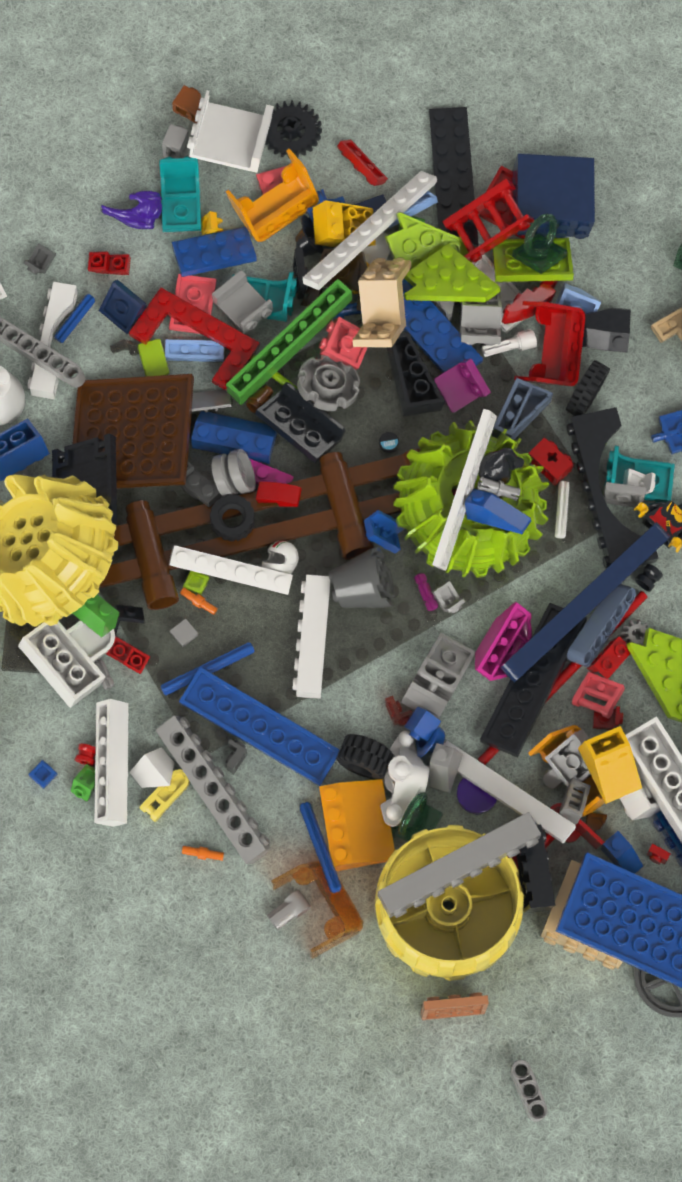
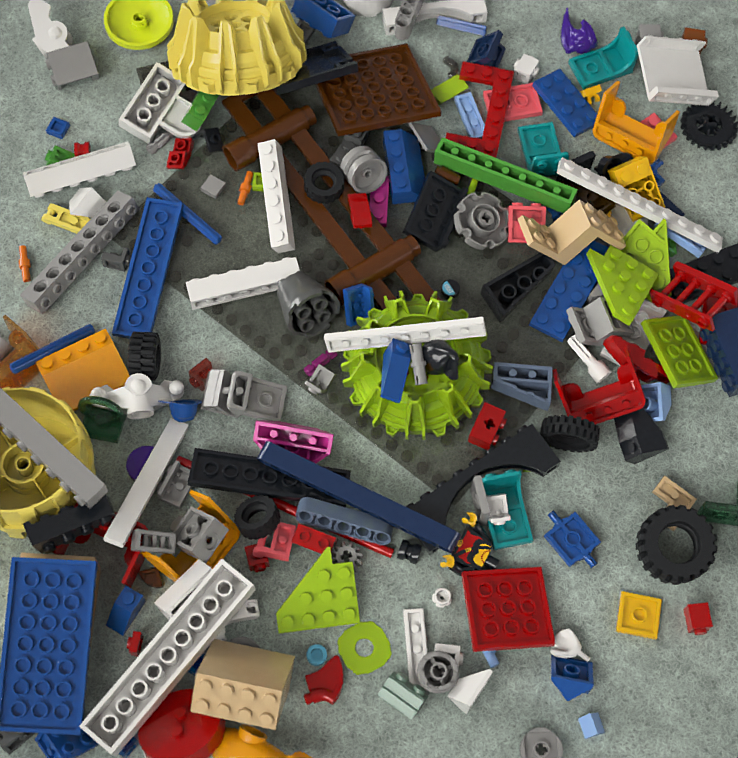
camera: 70 degrees right, 5 degrees down
(109, 264) = (521, 33): red slope -> none
(157, 274) = (526, 68): none -> white brick
(241, 302) = (528, 133): light grey panel -> none
(282, 557) = (304, 237): white helmet -> none
(362, 162) = (705, 188): red plate -> none
(422, 724) = (188, 392): blue brick -> none
(444, 767) = (158, 424): light grey slope -> none
(461, 385) = (526, 326): magenta bracket -> none
(510, 768) = (175, 486): none -> light grey bracket
(538, 251) = (688, 352): clear green tile -> none
(556, 698) = (264, 526): none -> black tyre
(562, 509) = (445, 452): white axle -> none
(611, 764) = (191, 558): yellow slope -> none

